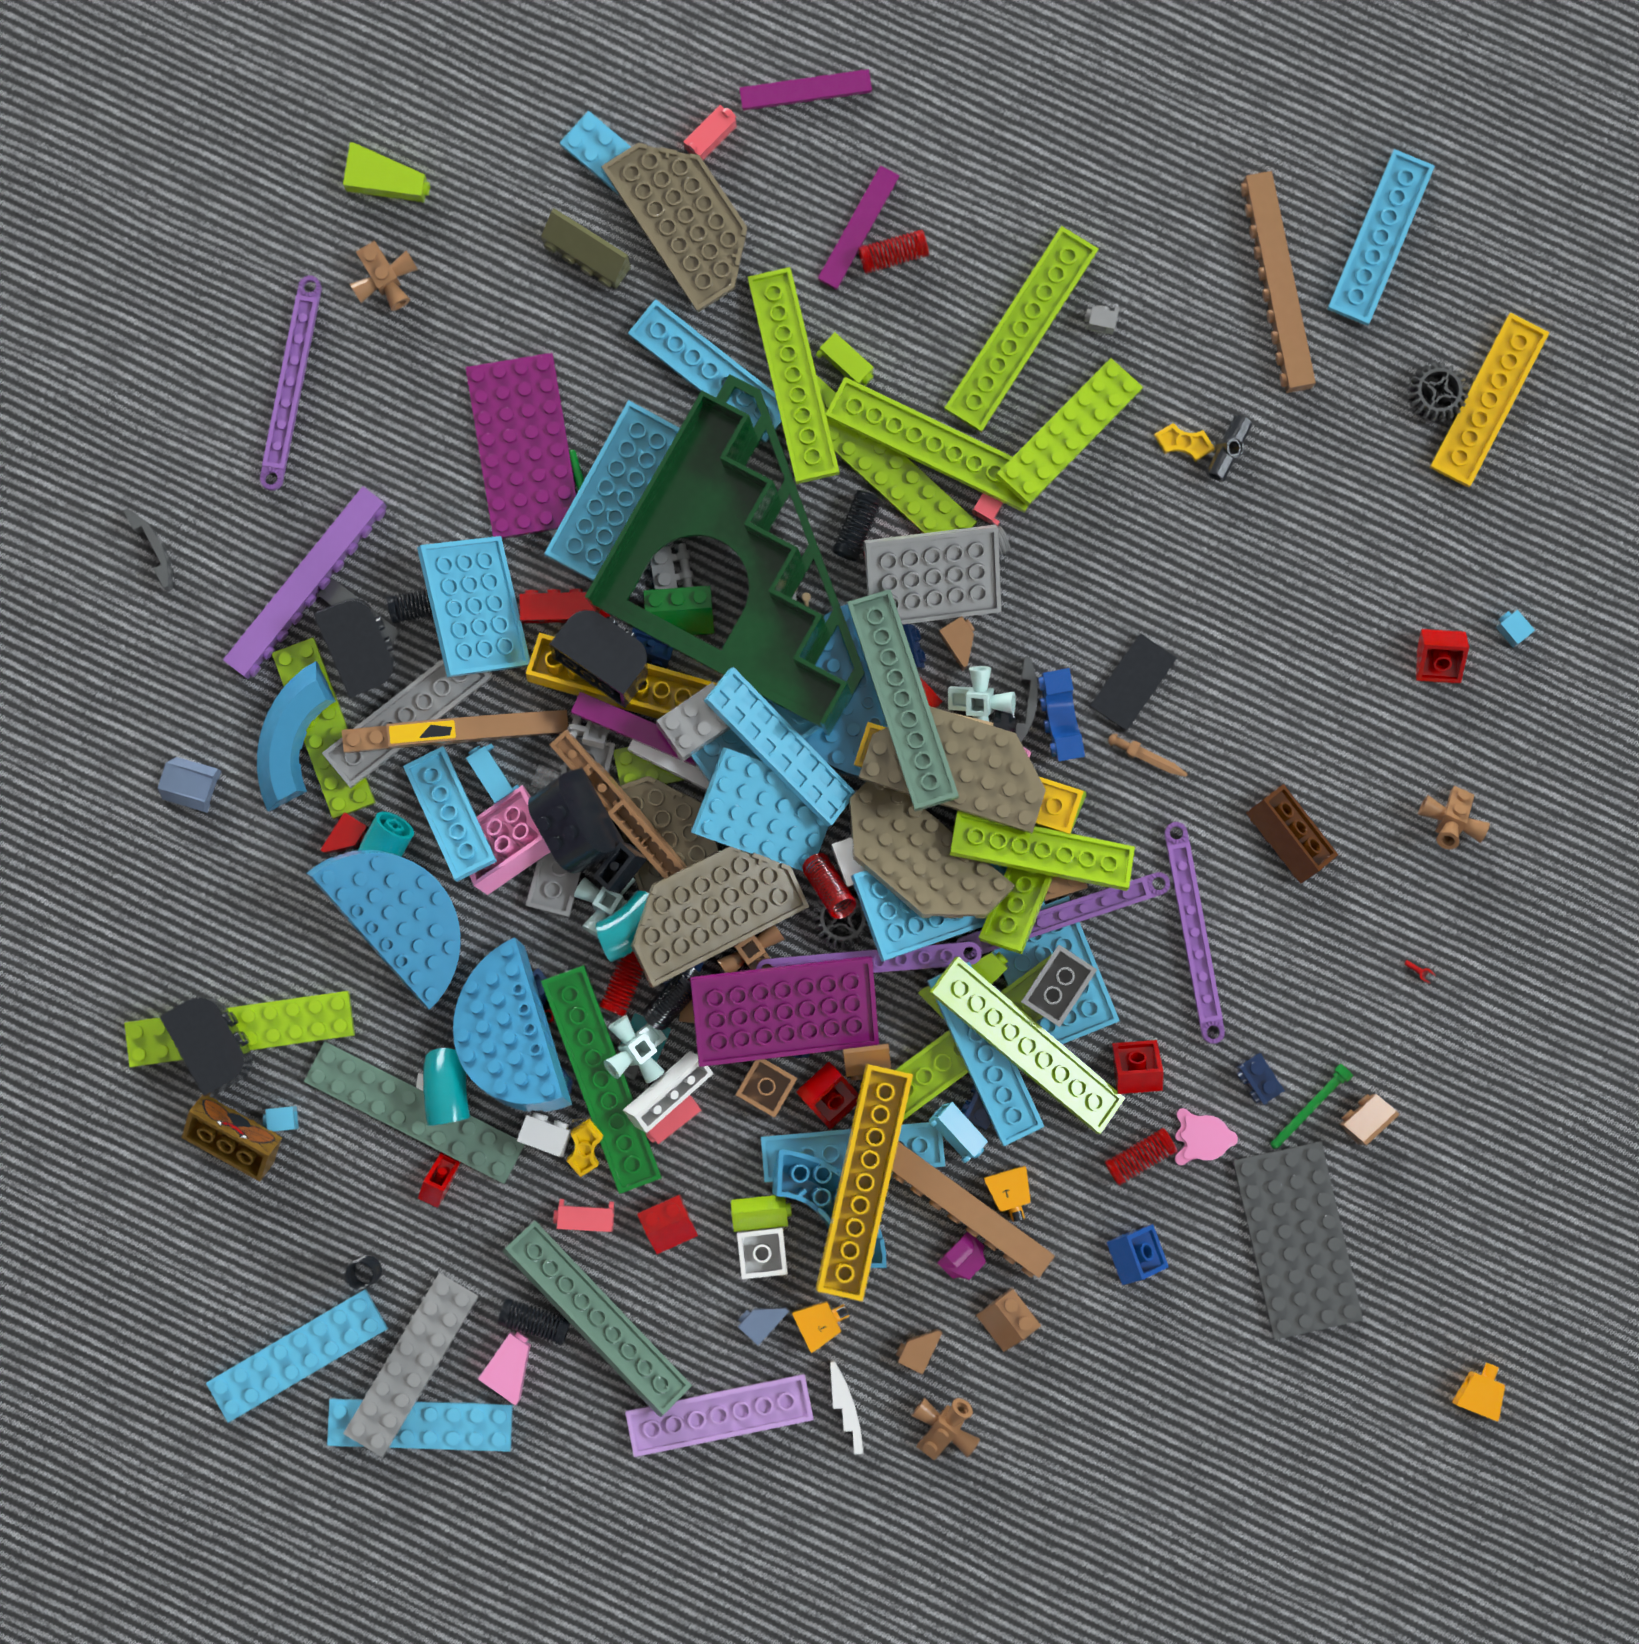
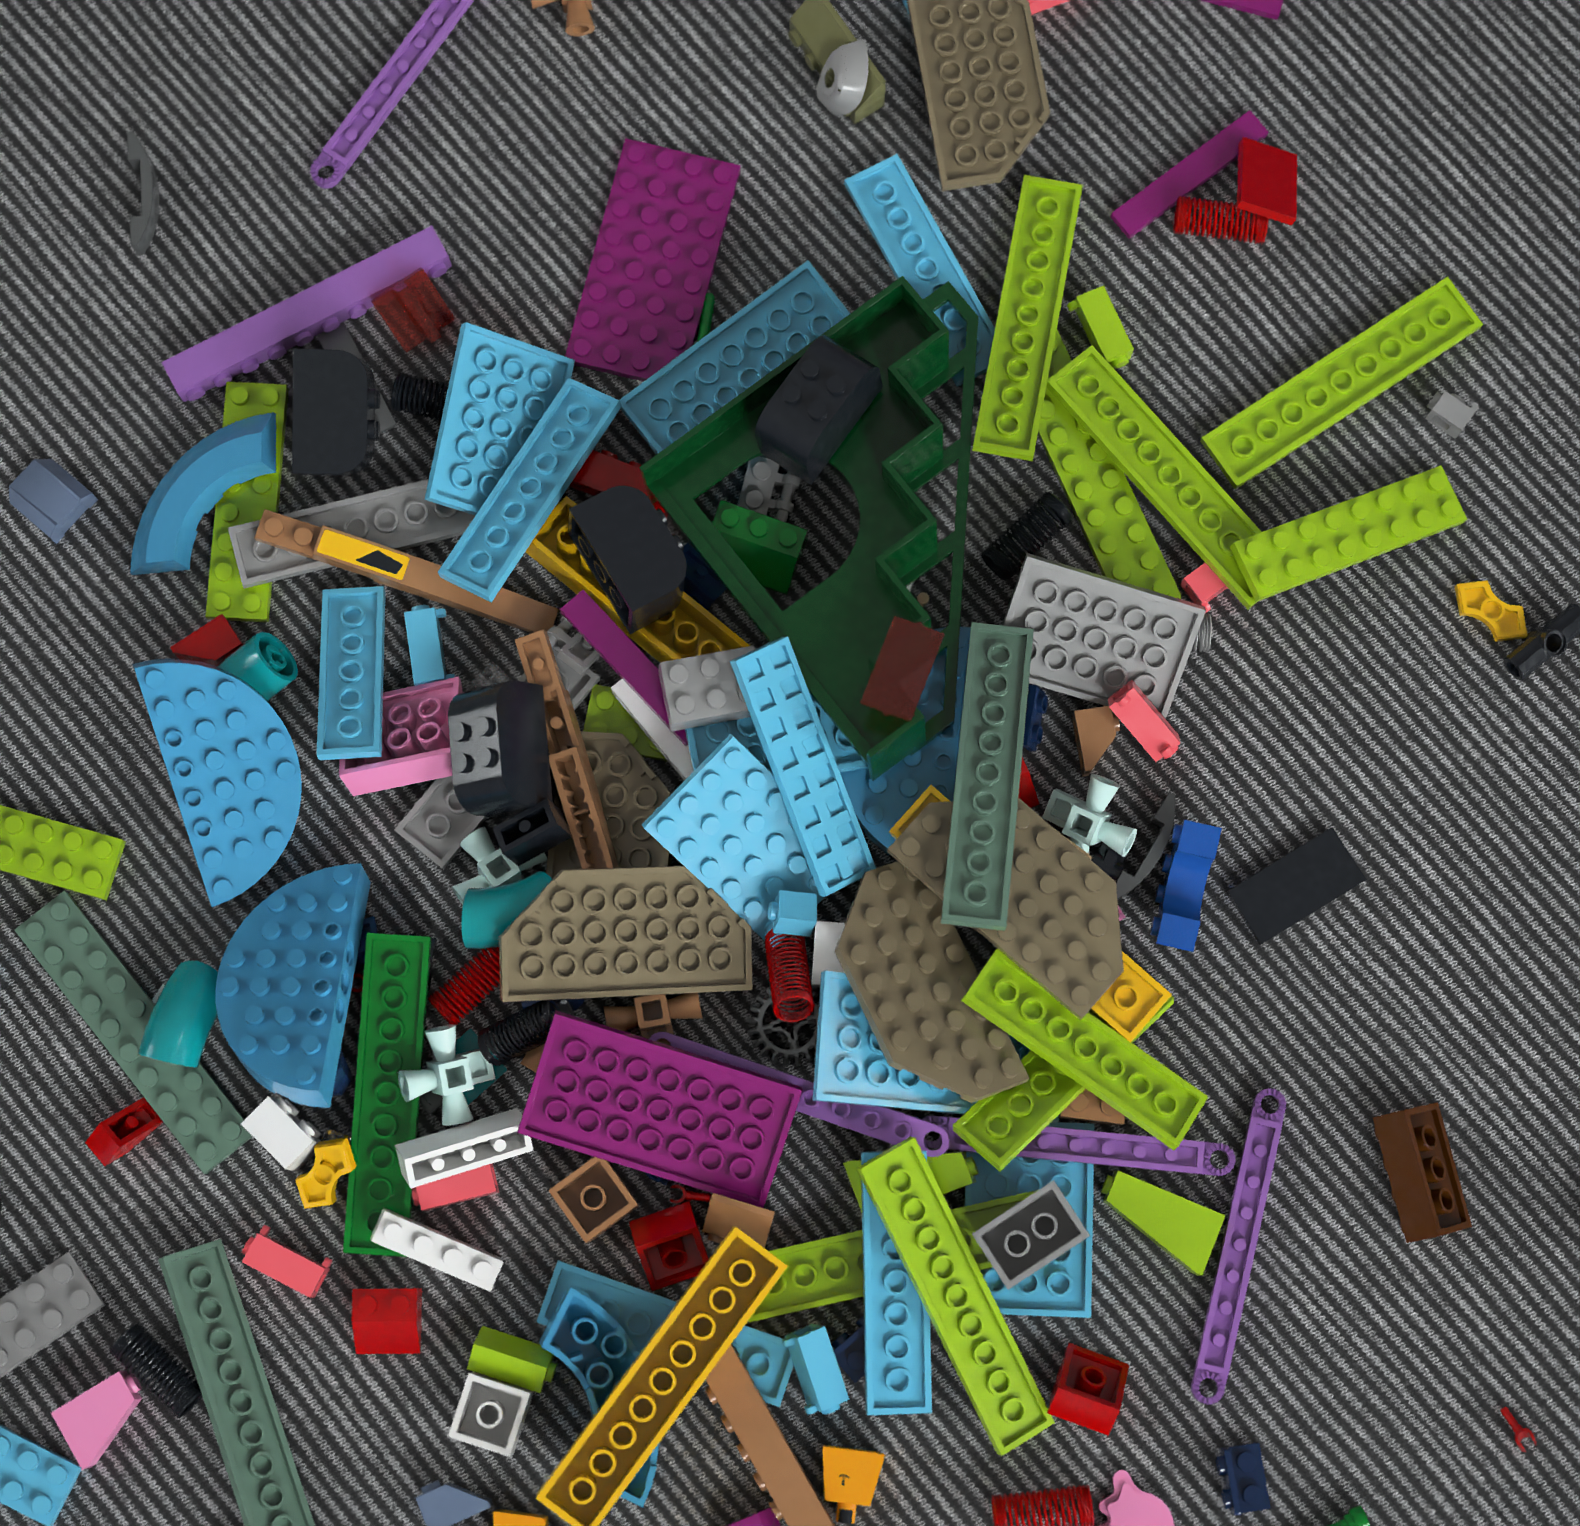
camera: 25 degrees right, 5 degrees down
(377, 549) = (413, 310): none -> clear red bracket
(513, 639) = (529, 489): none -> medium azure plate
(600, 256) = (851, 76): none -> light grey piece
(679, 1164) = (436, 1249): none -> white brick
(684, 504) = (816, 407): none -> black brick
(815, 845) = (793, 913): none -> medium azure brick
(819, 656) = (902, 668): none -> clear red piece
(828, 1057) = (690, 1195): none -> red hand
(913, 212) = (1267, 181): none -> red tile
(988, 617) = (1144, 721): none -> coral brick
(1133, 749) = (1261, 972): medium nougat sword -> none
(1142, 936) = (1170, 1221): none -> lime slope

